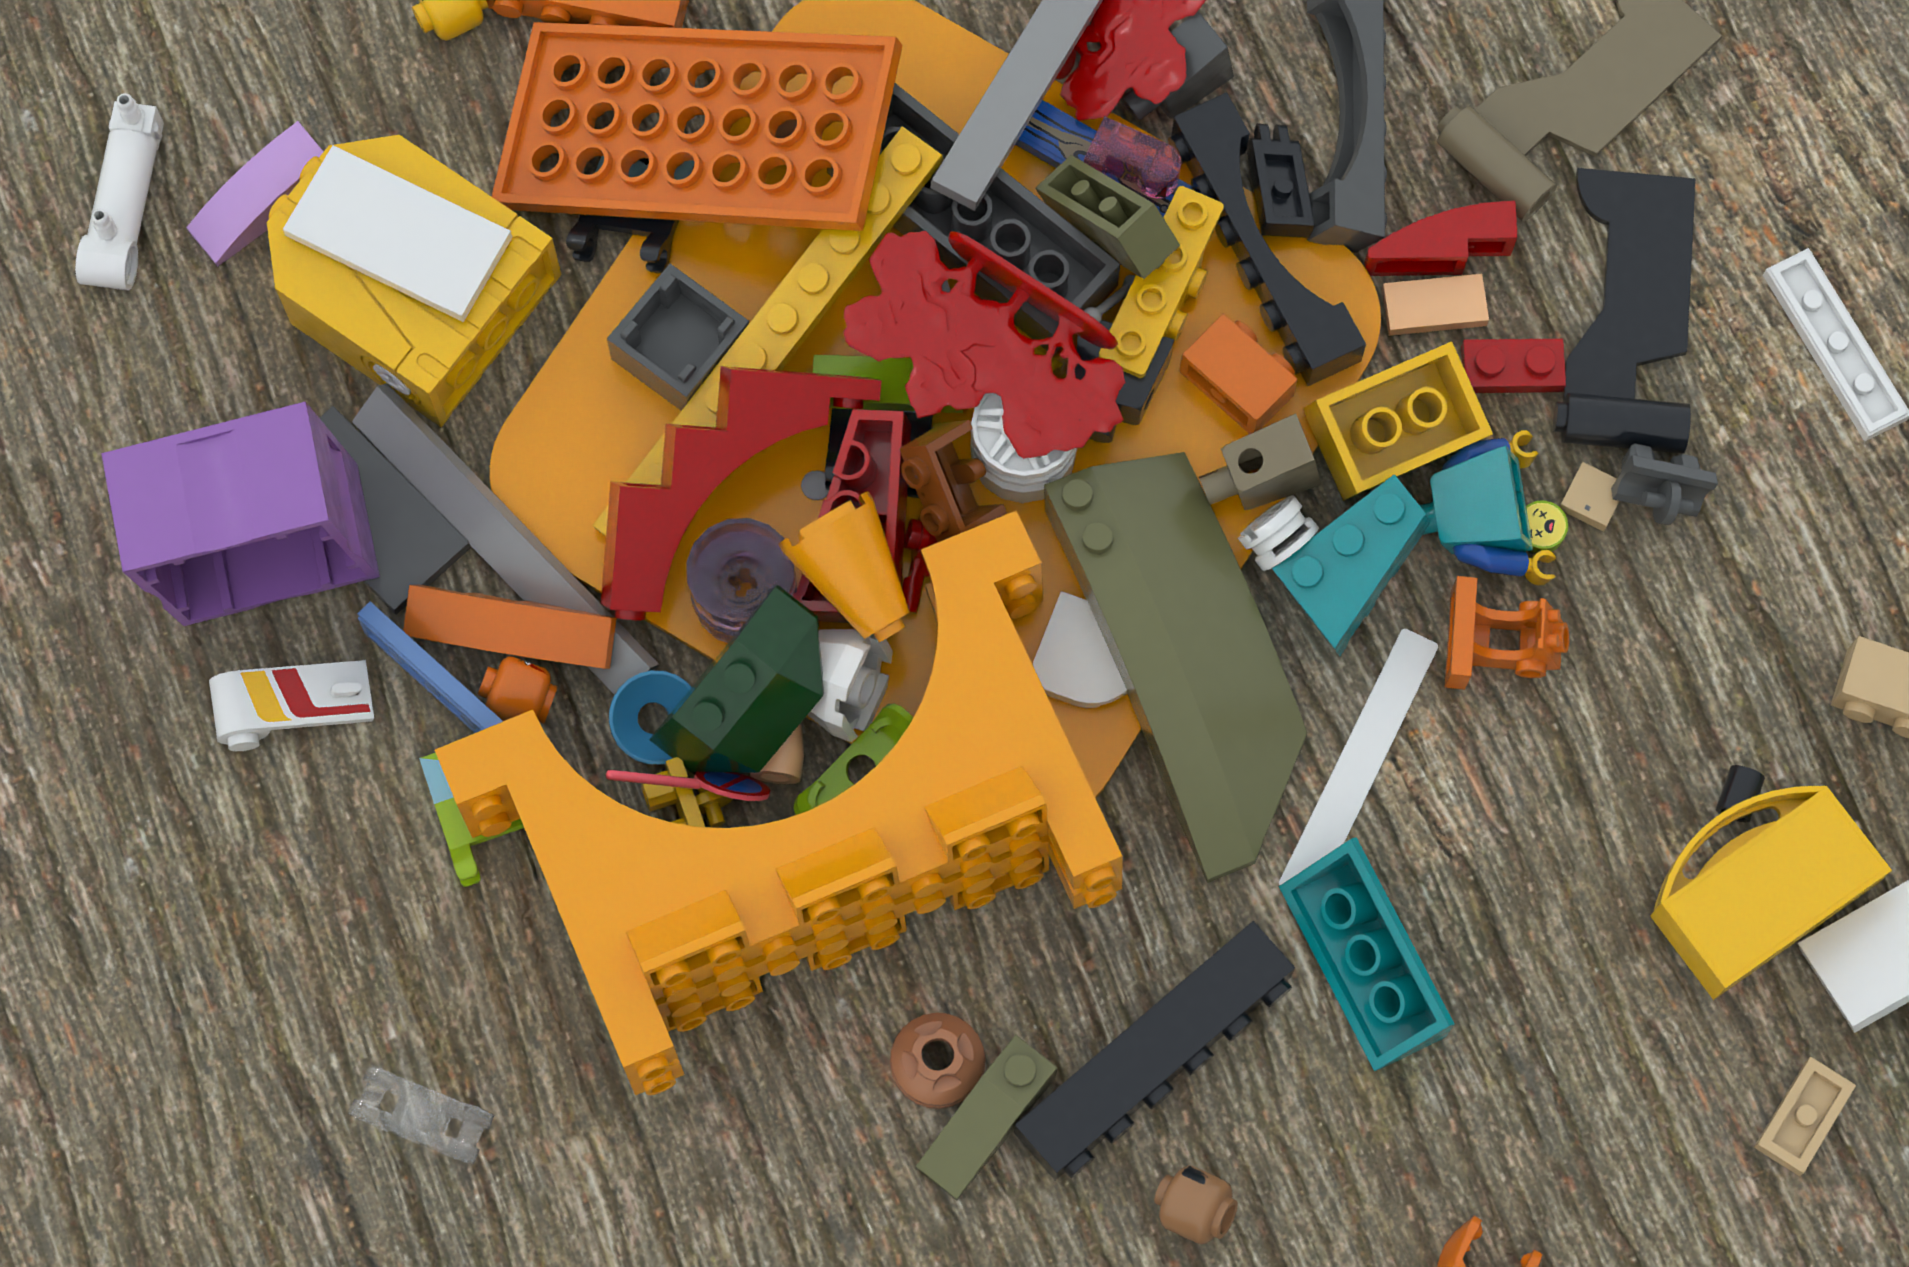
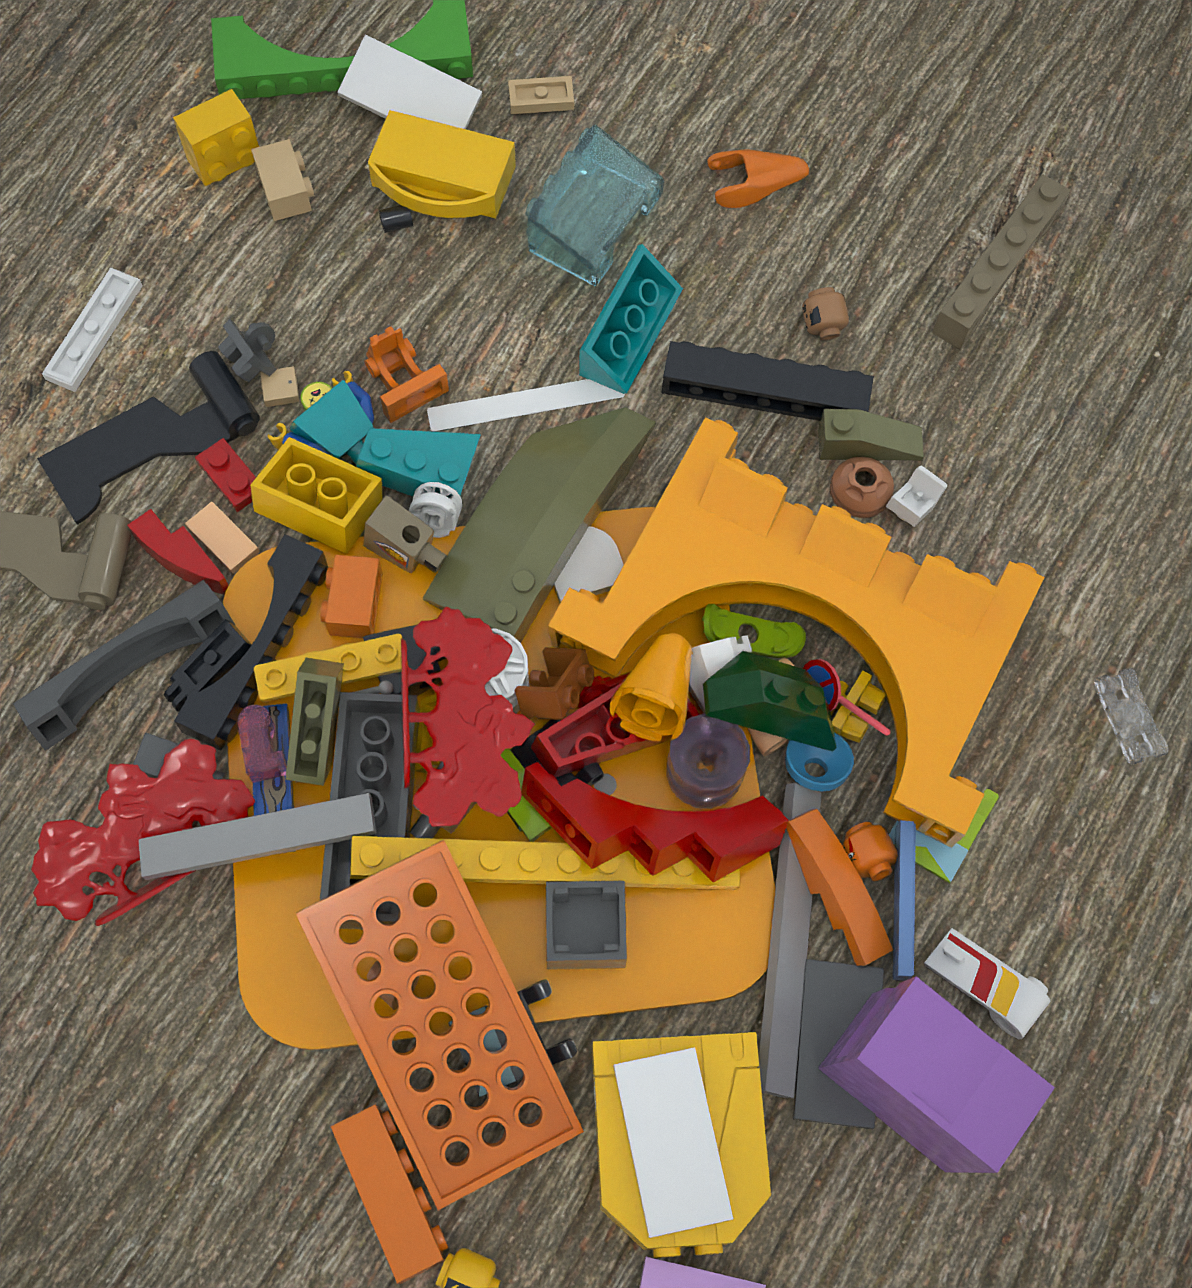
camera: 130 degrees left, 5 degrees down
(867, 1098) = (917, 496): none -> white bracket
(1572, 1037) = (590, 205): none -> clear light blue windscreen

